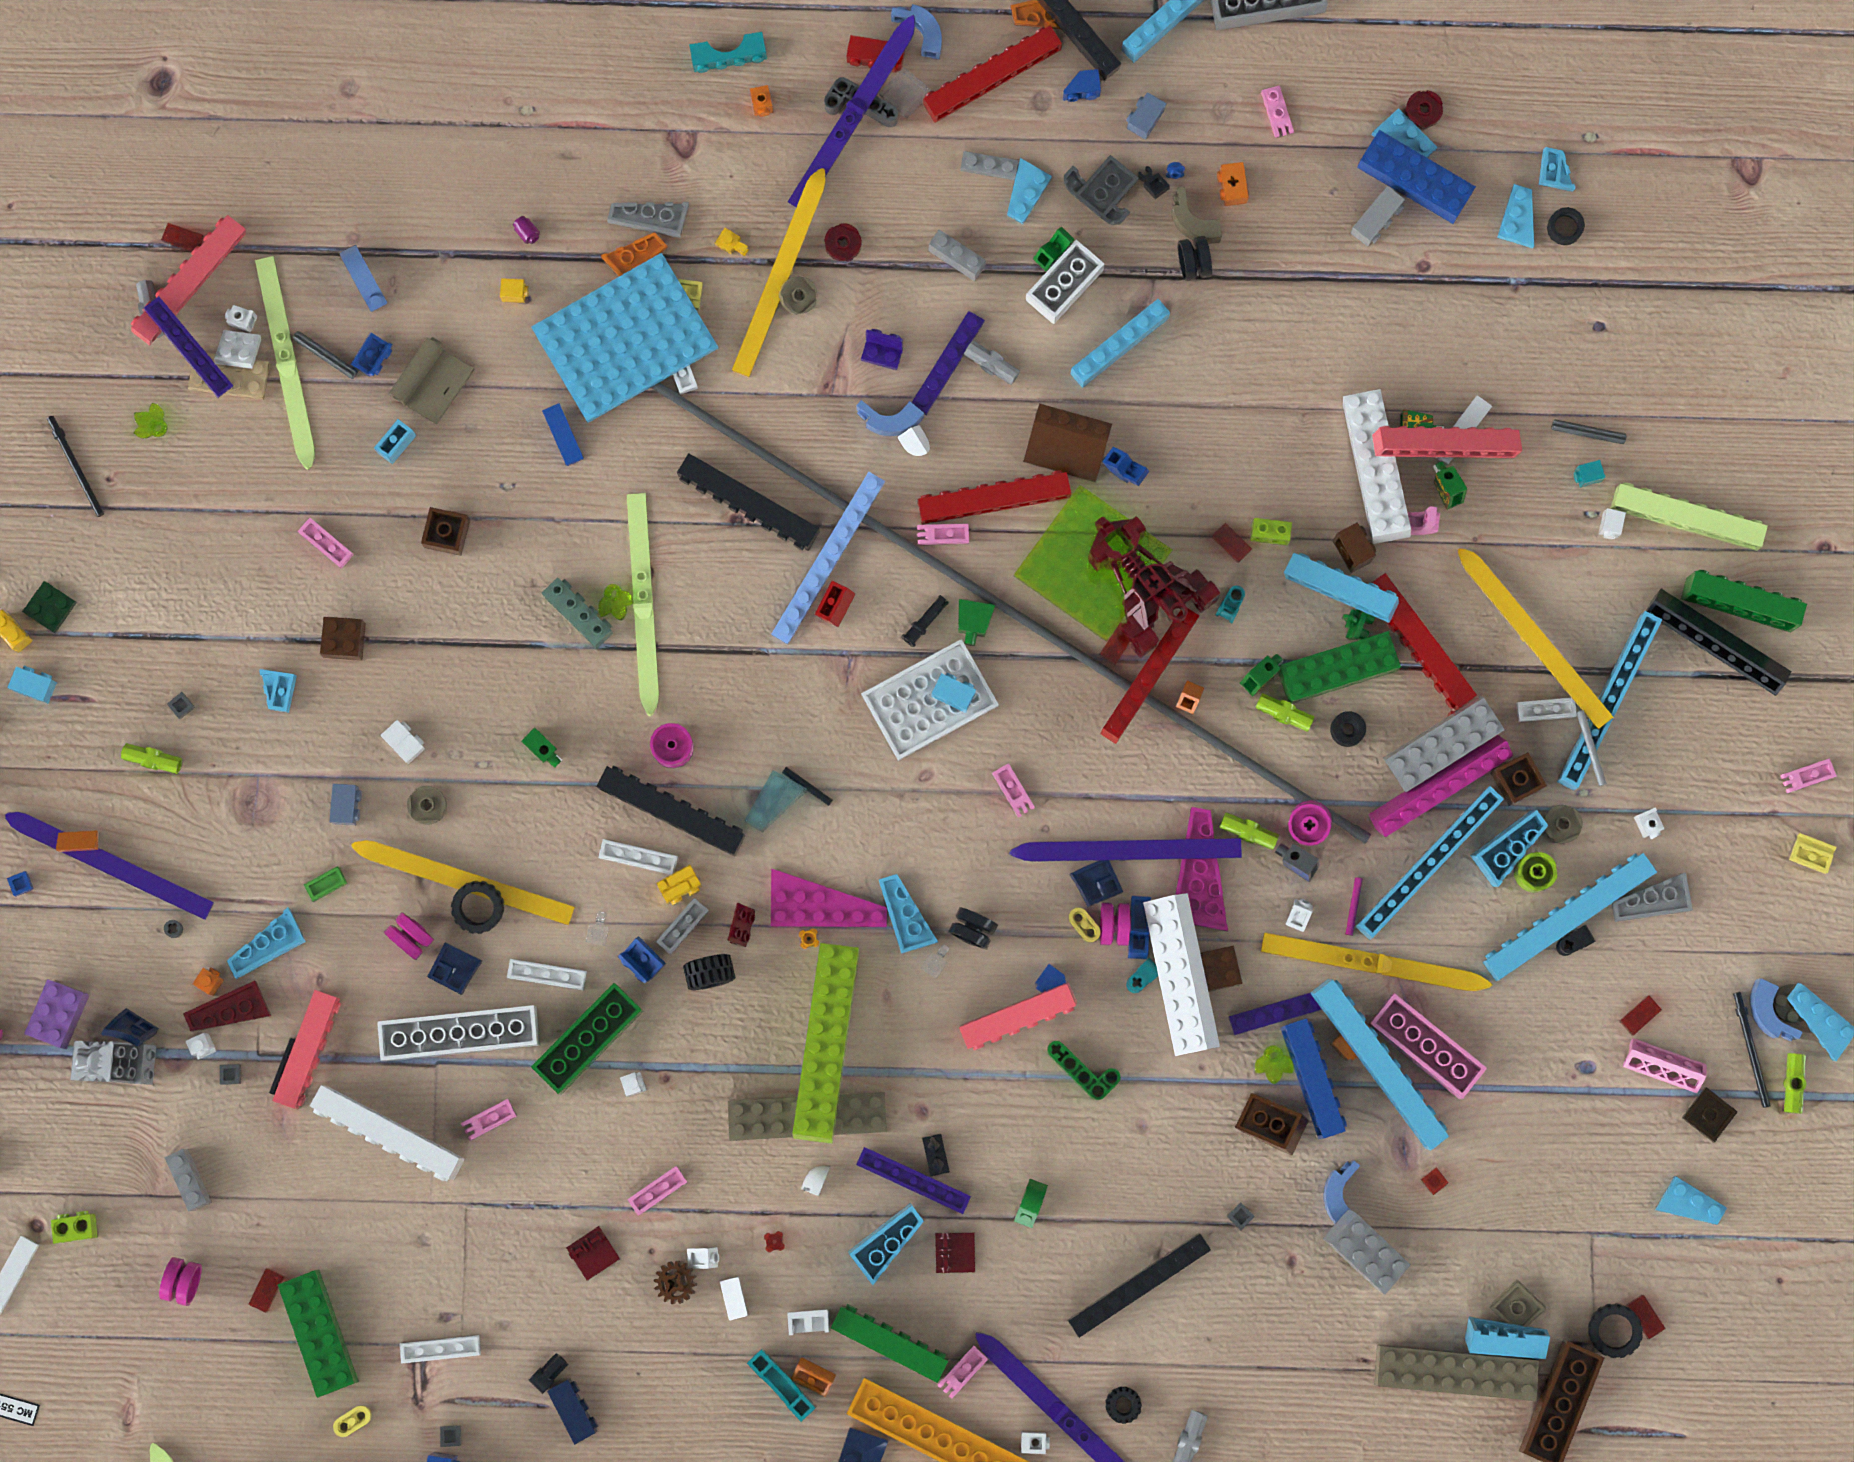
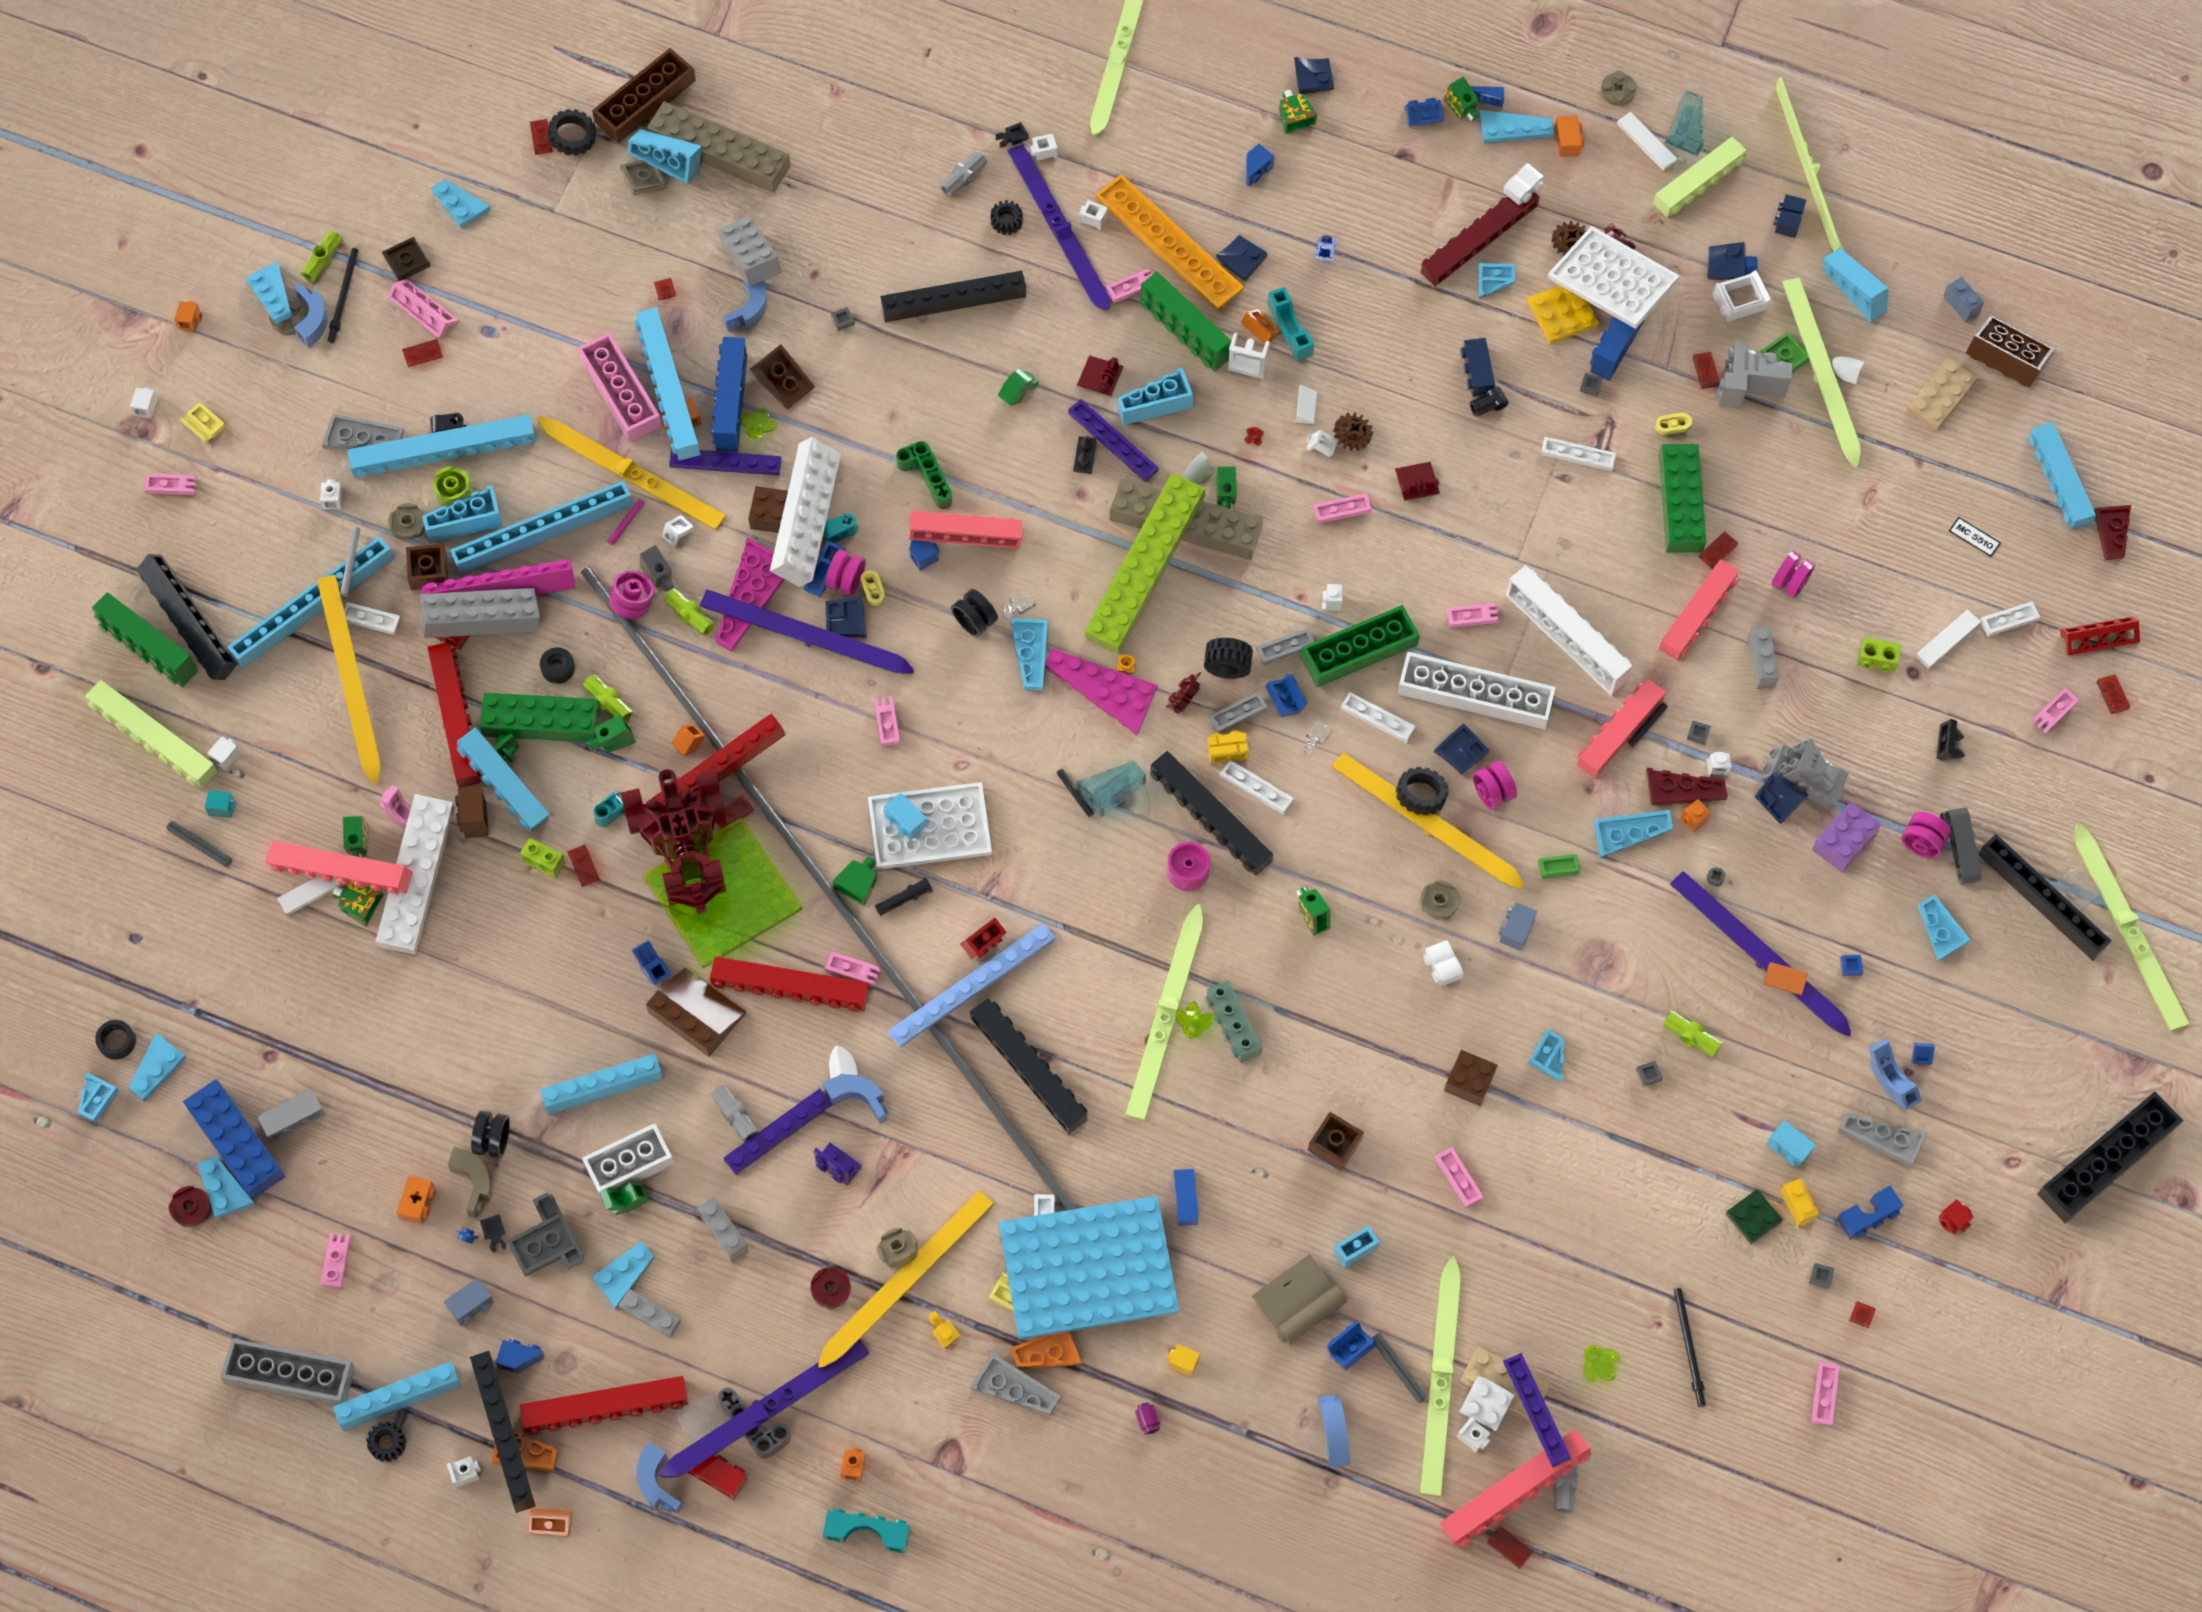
camera: 160 degrees left, 15 degrees down
(266, 1211) = (1699, 609): none -> coral brick
(661, 1014) = (1284, 646): none -> light grey plate
(782, 1170) = (1226, 486): none -> green torso

